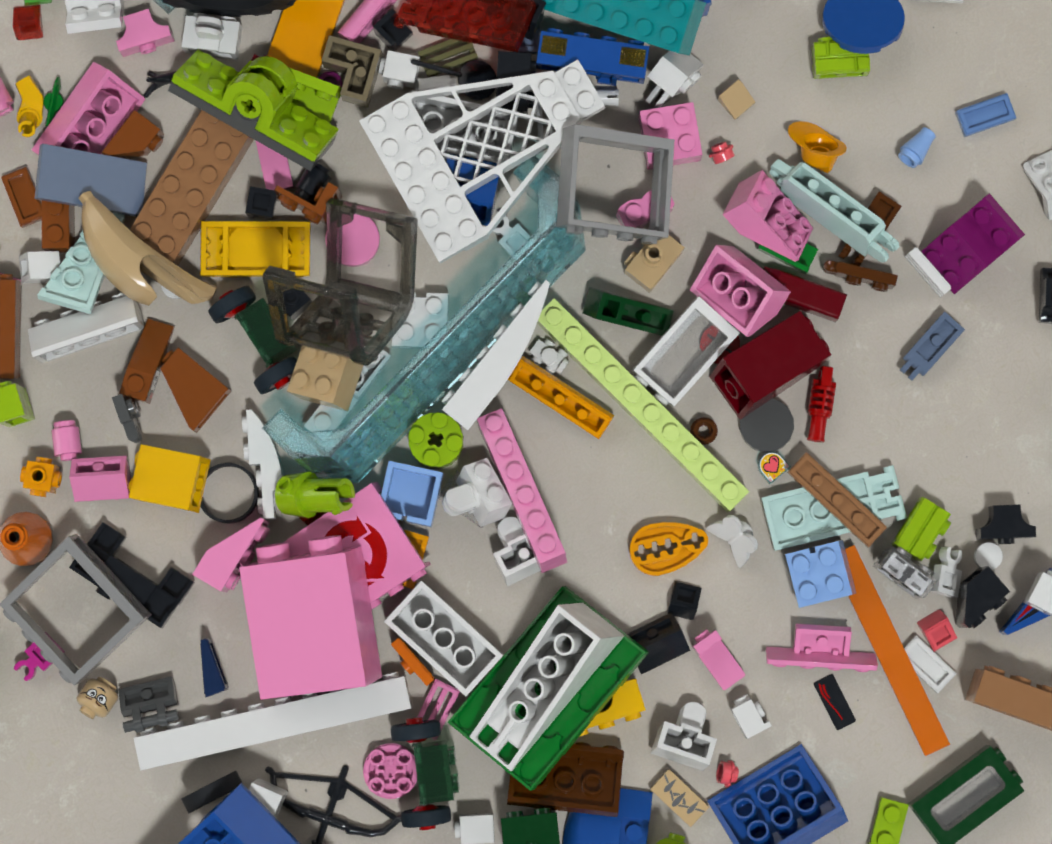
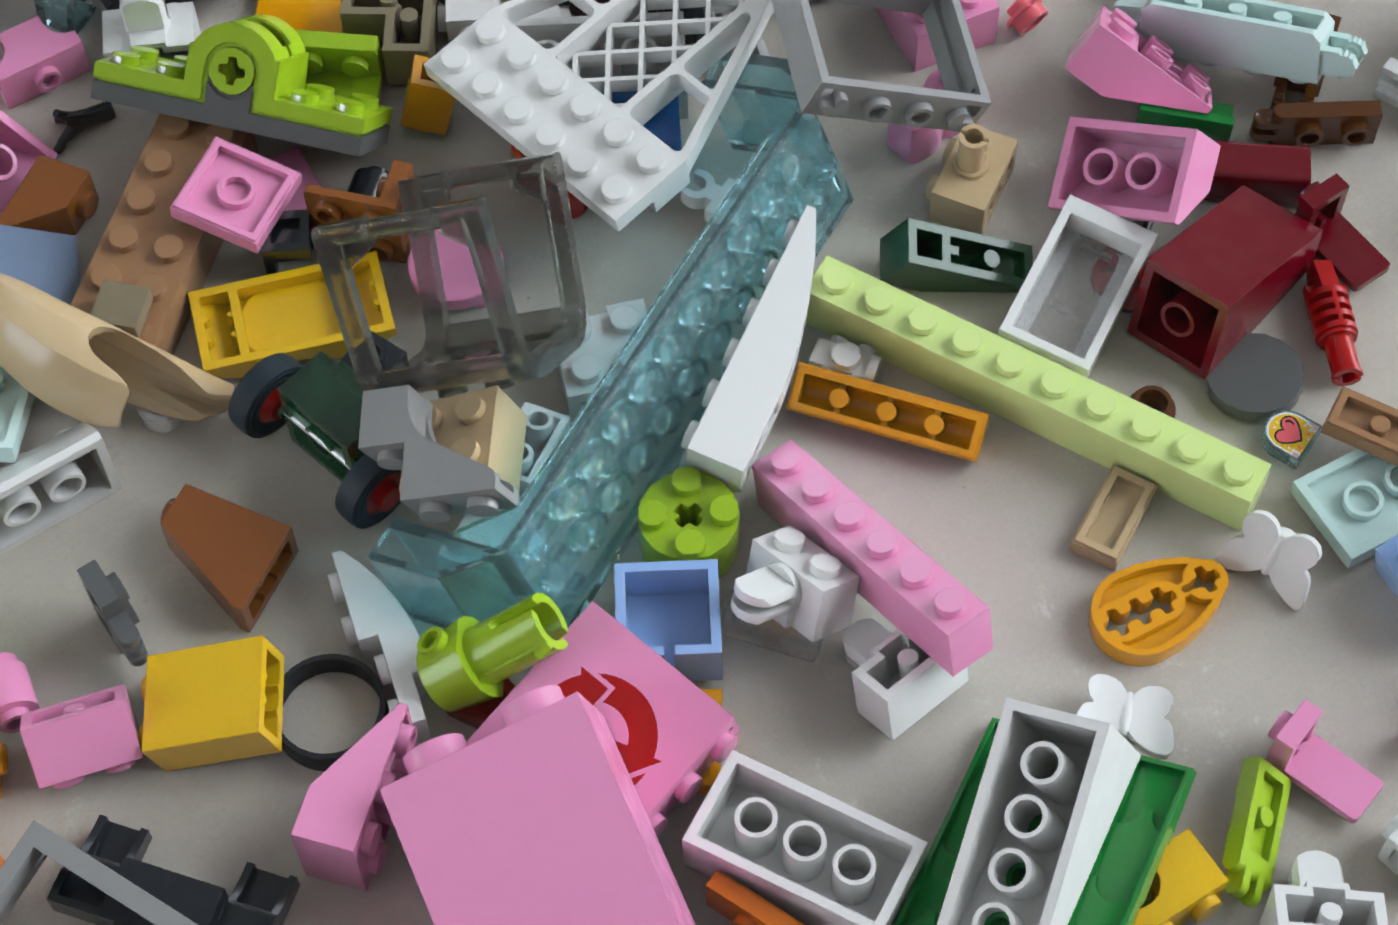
camera: 15 degrees left, 25 degrees down
(146, 361) = (131, 532): dark orange slope -> none
(161, 236) = (123, 306): none -> dark tan tile
(238, 174) = (236, 194): none -> bright pink tile
(303, 401) = (434, 479): none -> light grey arch
(353, 128) = (425, 103): none -> light orange brick
(628, 605) = (1134, 715): none -> white animal
(663, 488) = (1113, 517): none -> tan tile
(663, 641) = (1216, 752): black panel -> none
(671, 683) = (1255, 829): none -> lime hinge
(684, 600) = (1222, 691): black slope -> none
(844, 353) = (1351, 253): none -> dark red bracket

